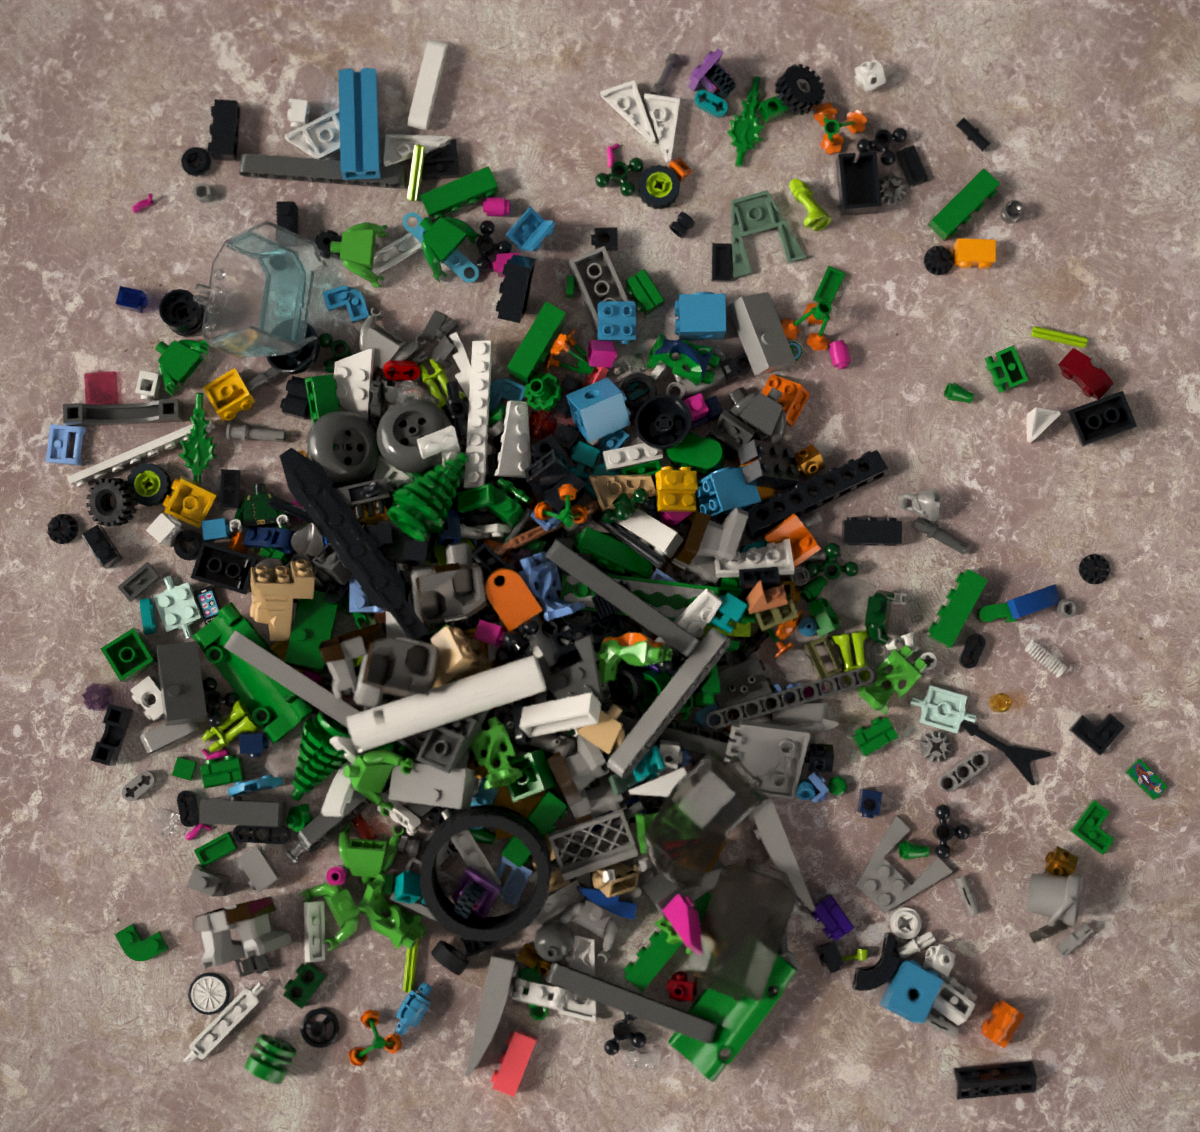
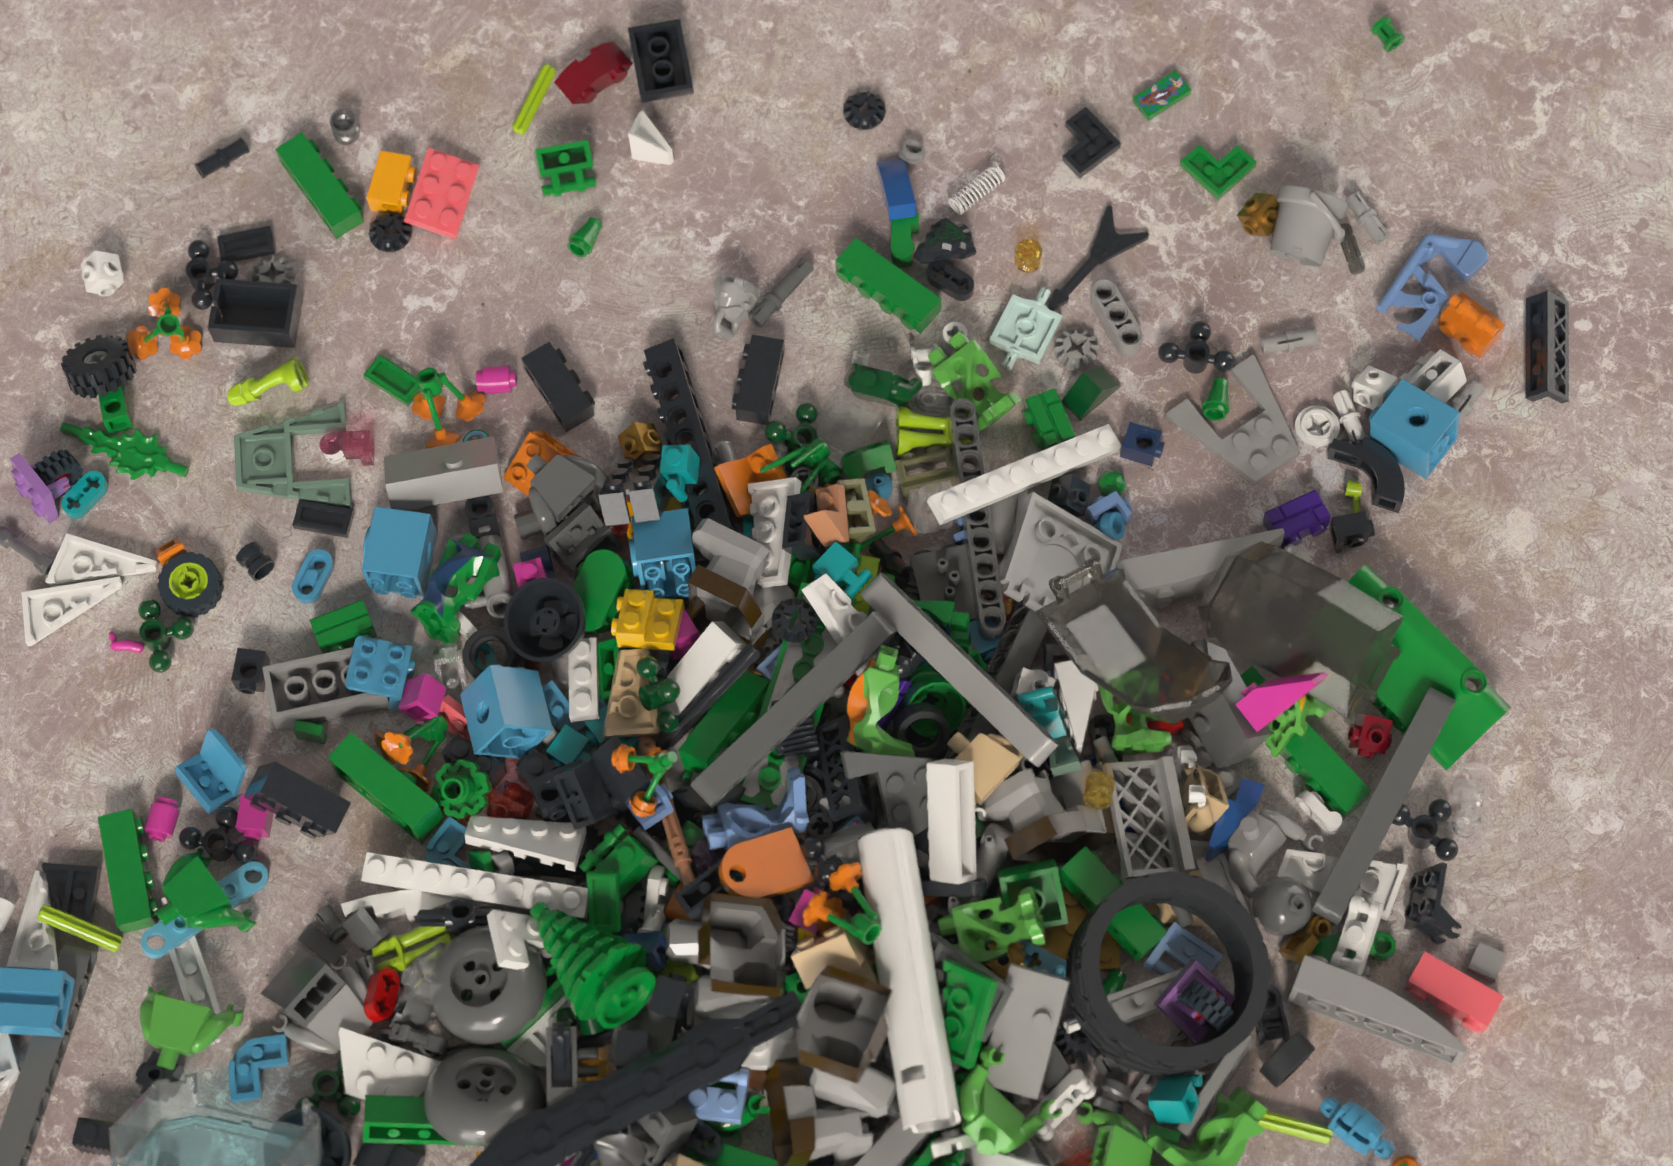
camera: 80 degrees left, 15 degrees down
(396, 320) = (302, 988): none -> dark grey brick
(430, 746) = (968, 1008): none -> green wing
(486, 646) = (831, 913): none -> orange plant
(540, 1081) = (1486, 962): none -> light grey tile
(570, 1038) = (1425, 906): none -> black plate
(600, 809) = (1099, 790): none -> clear yellow wheel
(628, 953) = (1313, 807): none -> white plate
(678, 263) = (311, 577): none -> dark azure plate
(684, 578) = (799, 632): none -> black gear
(774, 264) = (348, 445): none -> clear pink leg
(789, 490) = (679, 467): none -> teal brick
(817, 578) = (811, 455): none -> green plant
(826, 725) = (1023, 474): none -> white plate
(842, 397) = (558, 386): none -> black brick
(904, 761) = (1089, 391): none -> dark green slope
(973, 288) = (441, 193): none -> coral plate
(998, 643) = (946, 243): none -> black rock
(1055, 1013) = (1462, 255): none -> medium blue piece

